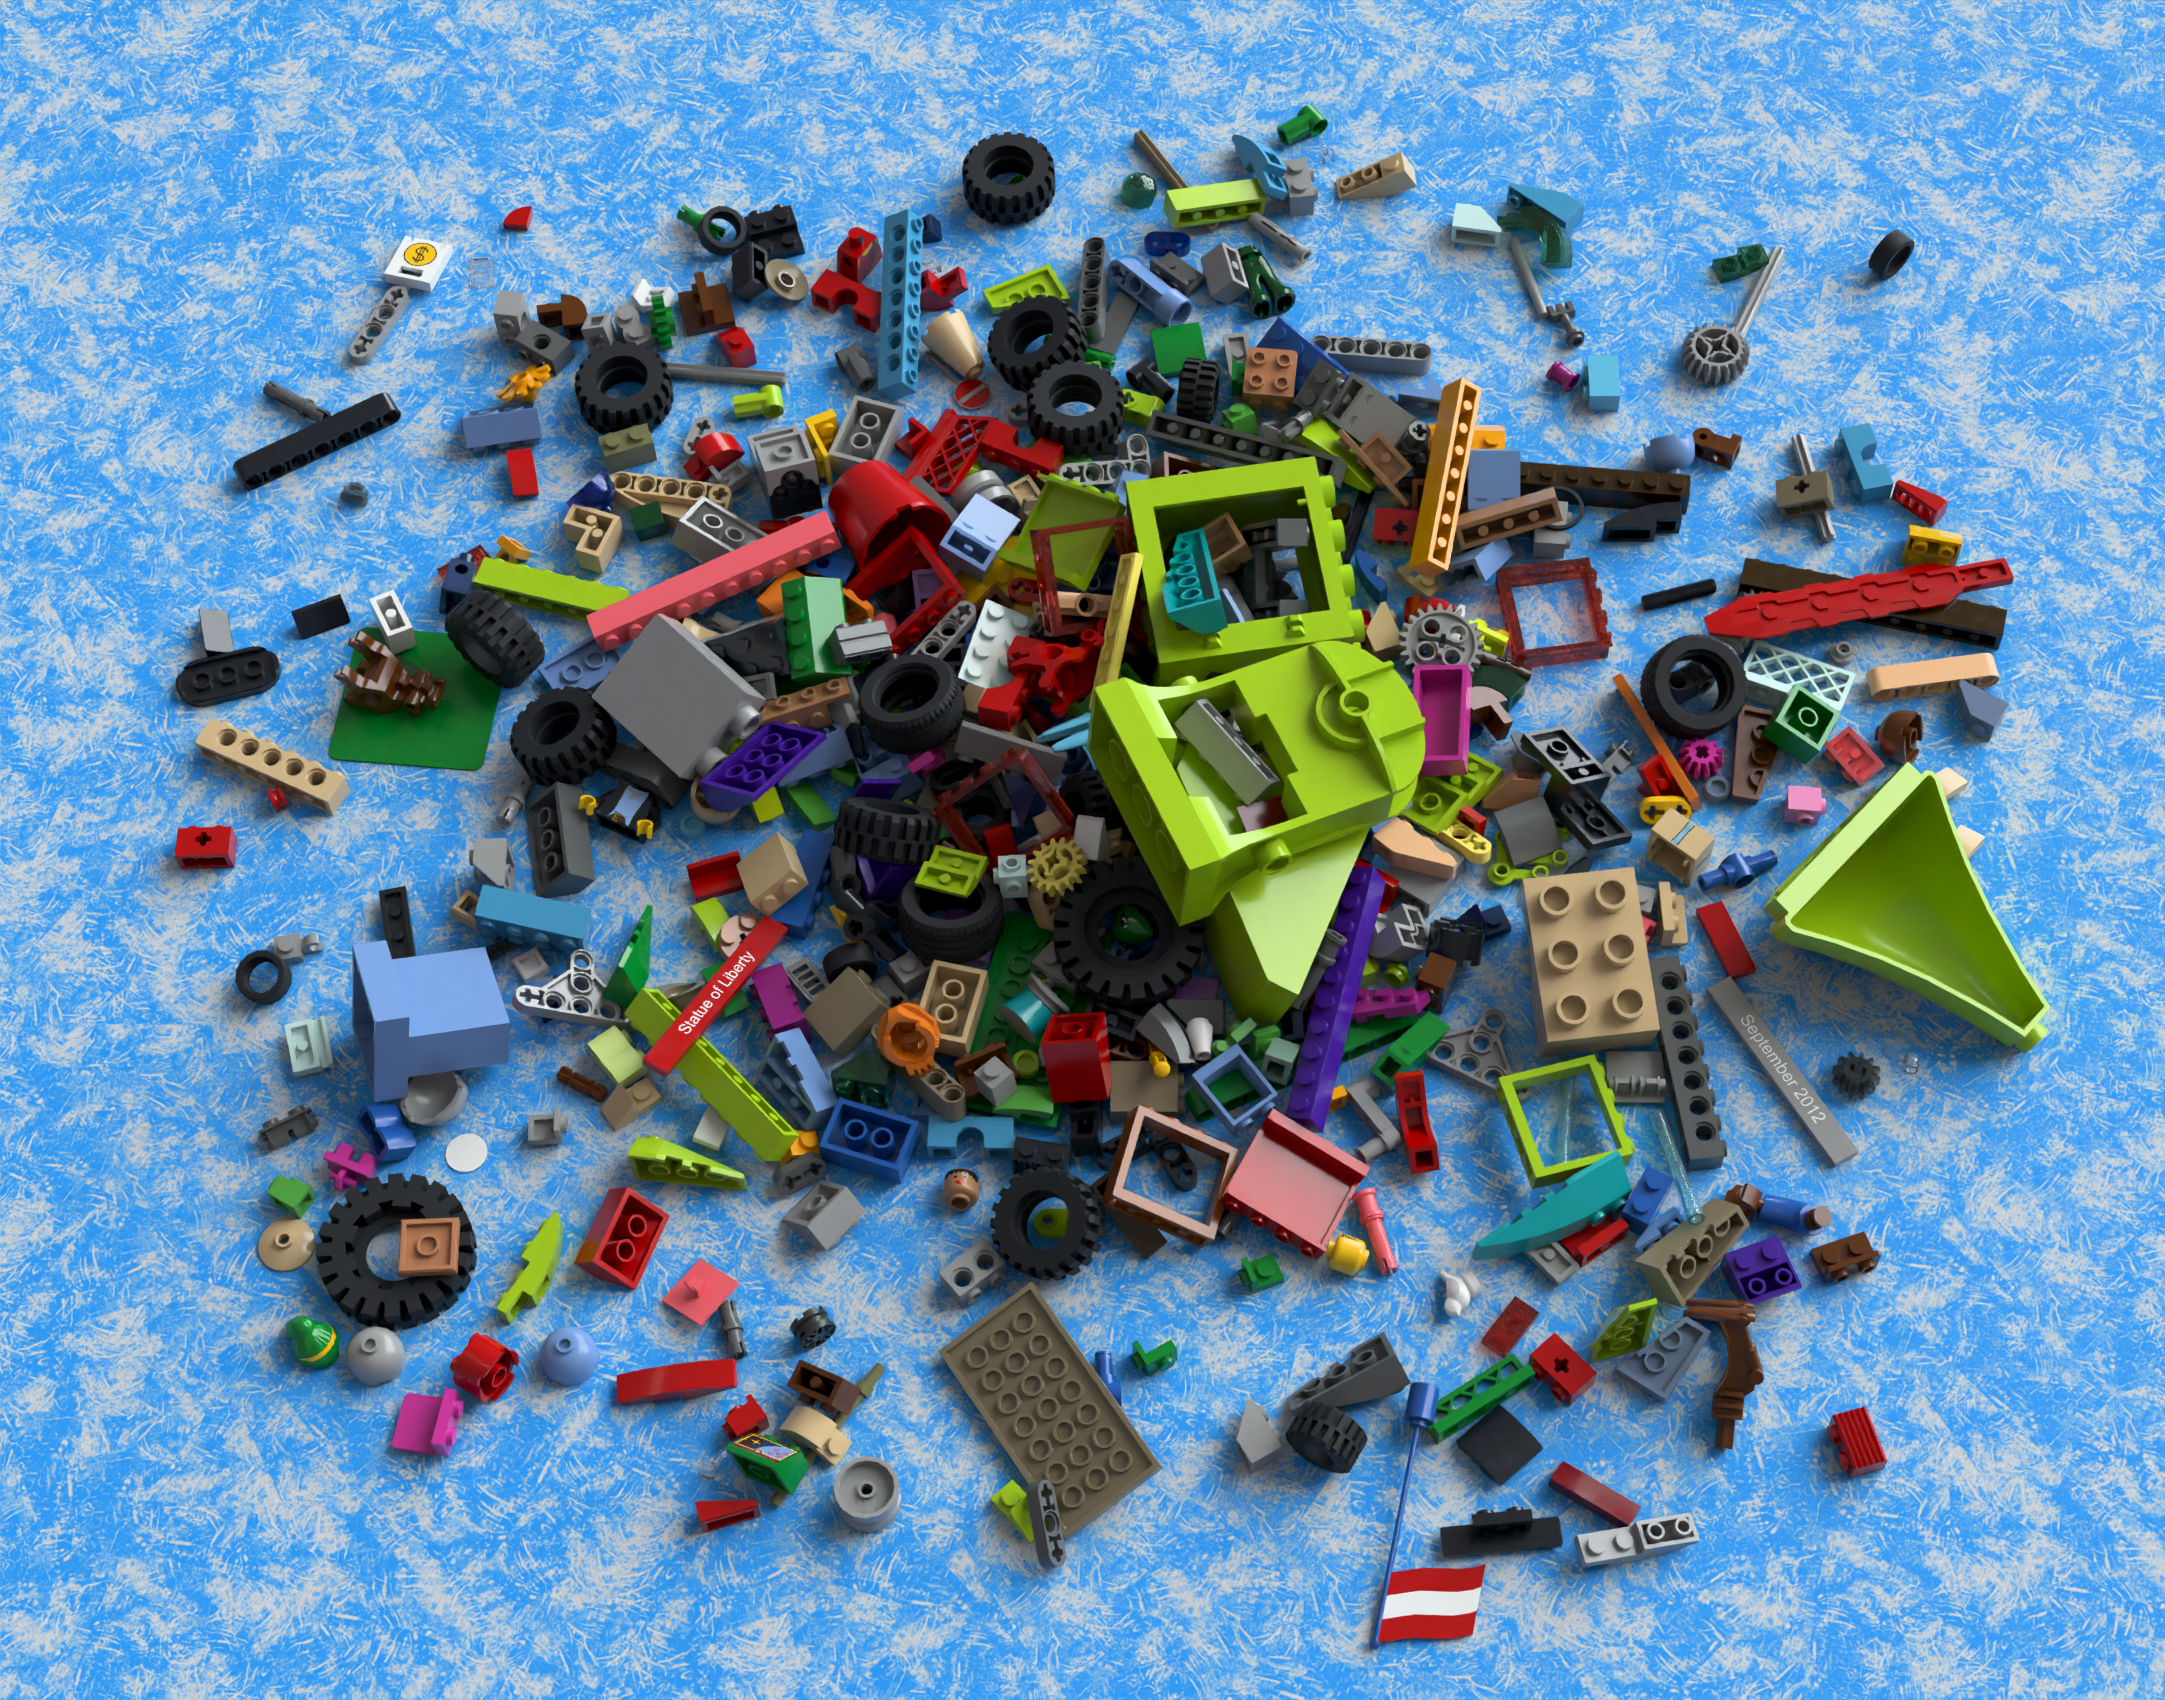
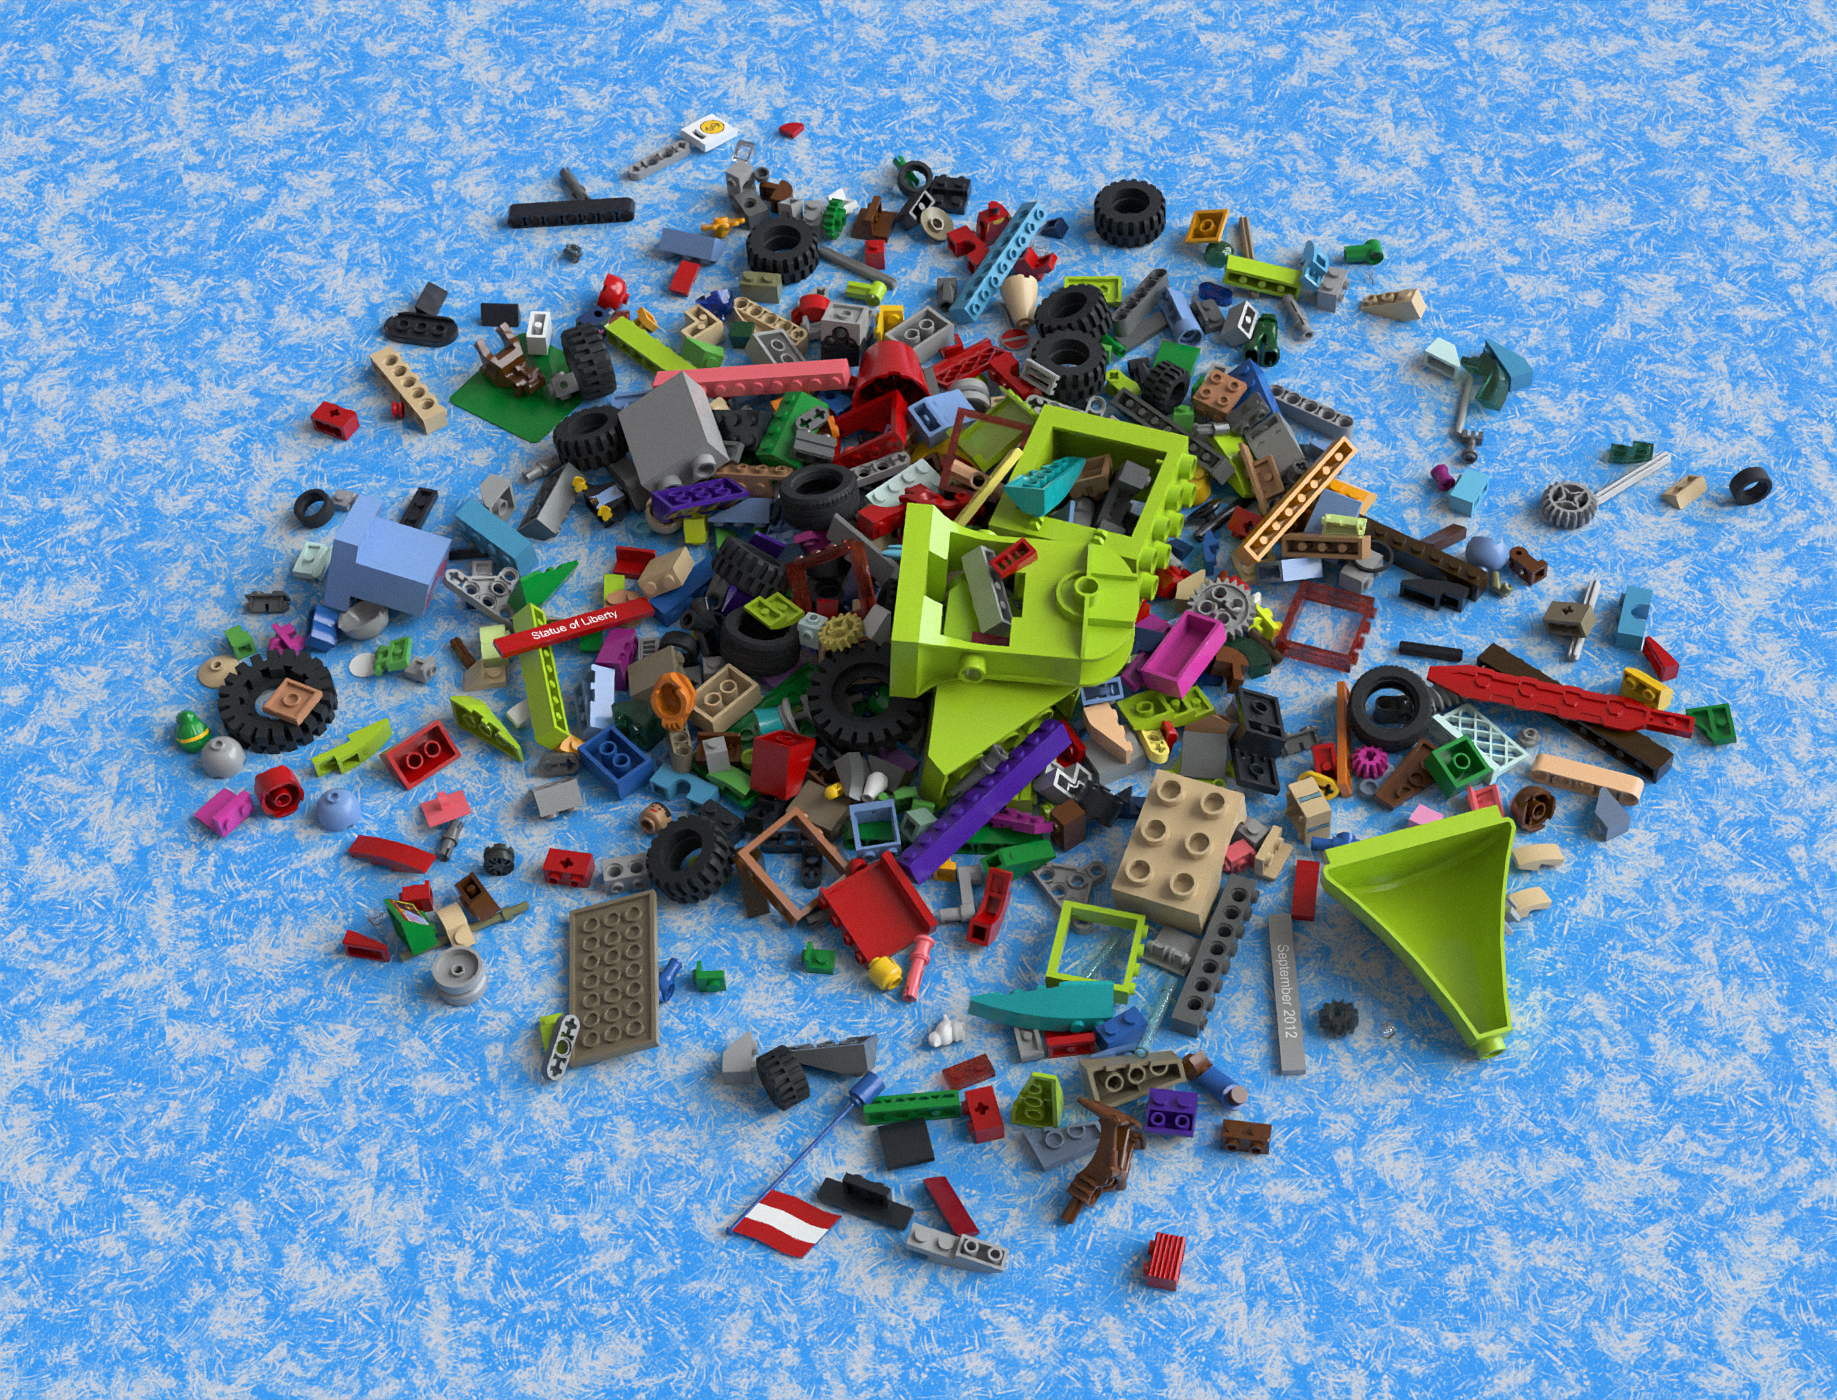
camera: 30 degrees right, 10 degrees down
(449, 532) = (613, 293): none -> red cylinder
(471, 679) = (569, 382): none -> light grey brick
(508, 1122) = (394, 656): none -> bright green plate
(533, 295) = (761, 175): none -> dark grey hinge
(621, 568) = (702, 353): none -> bright green slope
(832, 607) = (808, 417): none -> dark grey beam
(910, 1288) = (568, 868): none -> red brick
(1064, 430) = (1051, 383): none -> light grey tile
(1114, 162) = (1207, 226): none -> light orange slope
(1240, 1142) = (856, 865): none -> red hinge
(1256, 684) = (1015, 549): none -> red slope
(1514, 485) = (1343, 525): none -> yellowish green hinge
(1607, 448) = (1446, 536): none -> slope
(1702, 486) = (1495, 584): none -> olive arm
(1820, 285) = (1685, 491): none -> tan slope
(2020, 551) = (1714, 723): none -> green wing

